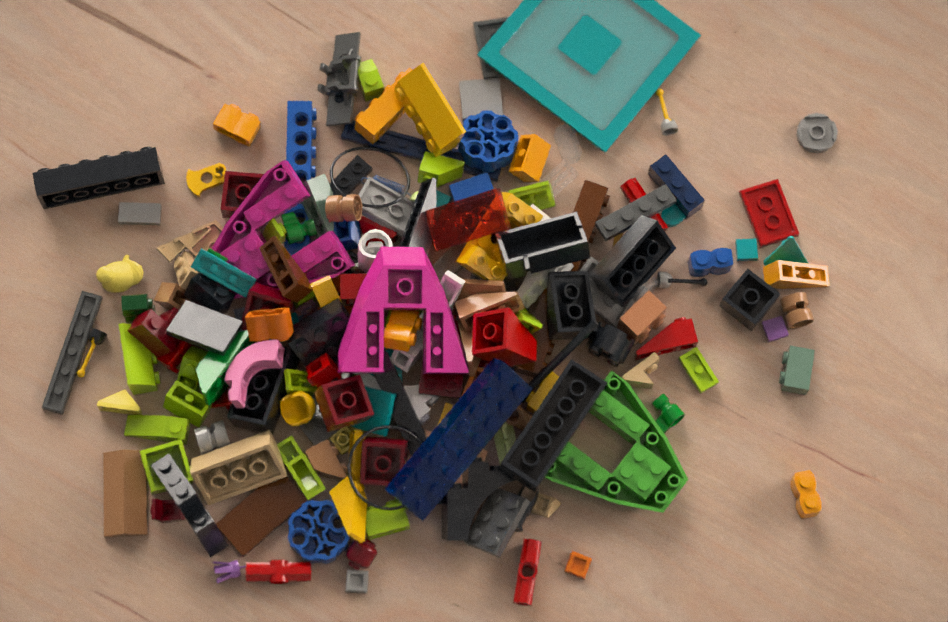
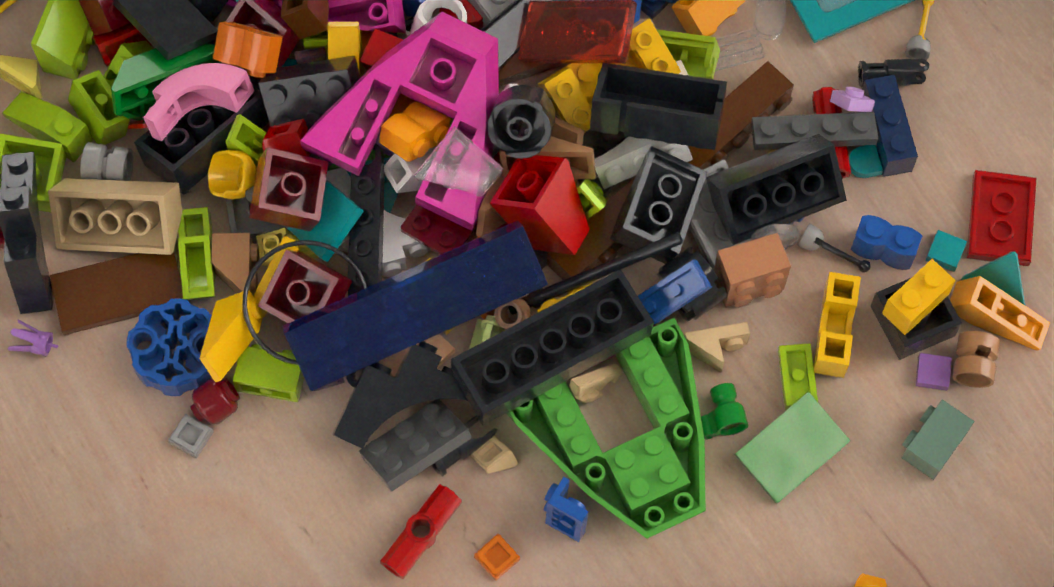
camera: 30 degrees right, 5 degrees down
(278, 571) = (95, 373): red piece -> none
(445, 341) = (460, 165): none -> clear slope
(466, 294) = (518, 105): none -> black brick
(580, 438) = (589, 386): none -> tan tile
(606, 355) = (675, 291): none -> blue tile
(607, 522) = (565, 514): none -> blue bracket
(649, 182) = (852, 100): none -> lavender plate
(663, 147) = (904, 70): none -> black piece
(675, 337) = (782, 317): red slope -> none
(709, 339) = (835, 324): none -> yellow arch
(717, 415) = (792, 447): none -> tile
(750, 291) = (918, 296): none -> yellow brick

